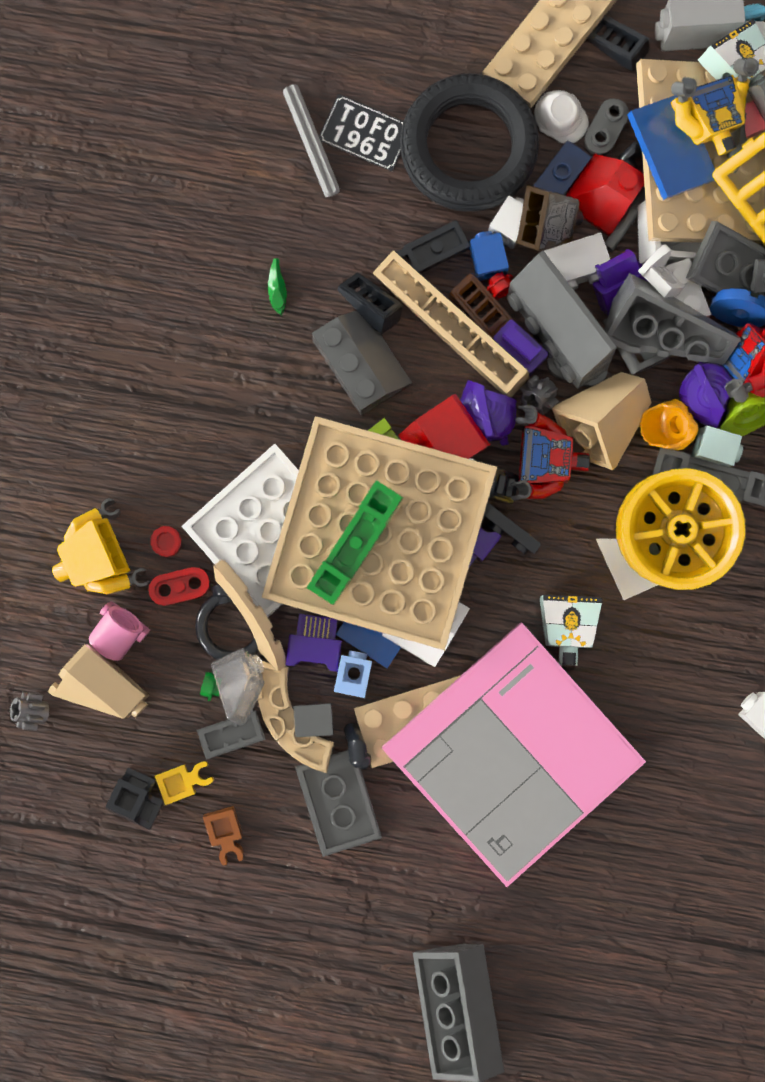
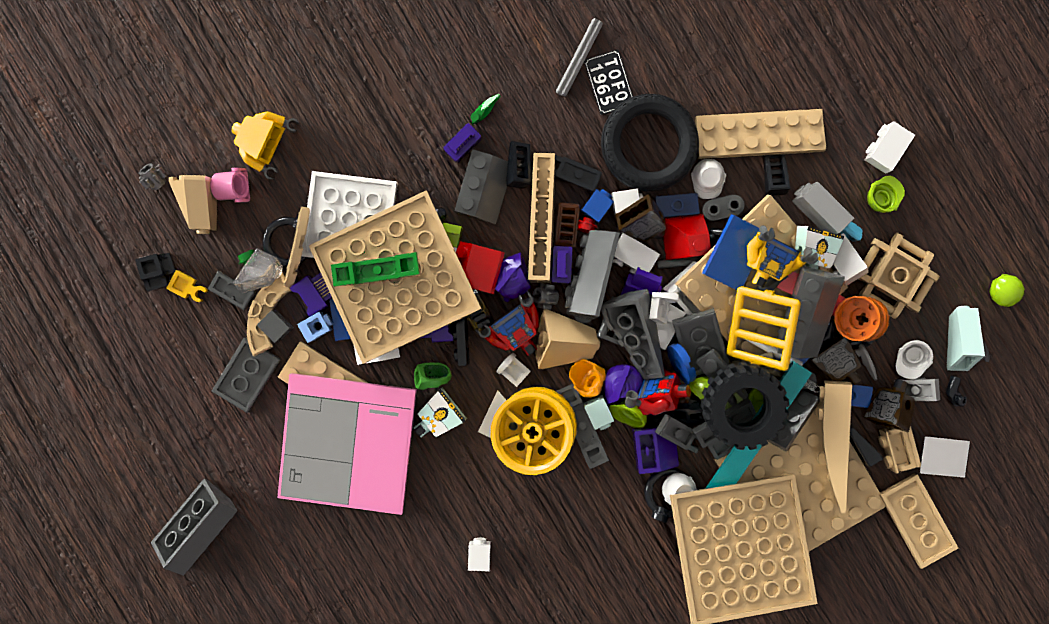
camera: 55 degrees right, 5 degrees up
(166, 541) = (301, 169): red tile -> none
(180, 586) = (284, 196): red plate -> none
(223, 830) = (180, 330): dark orange plate -> none
(293, 341) = (462, 143): none -> dark purple piece
(356, 747) = (280, 360): black arm -> none
(517, 595) = (431, 375): none -> bright green rock
(588, 501) = (513, 369): none -> white tile

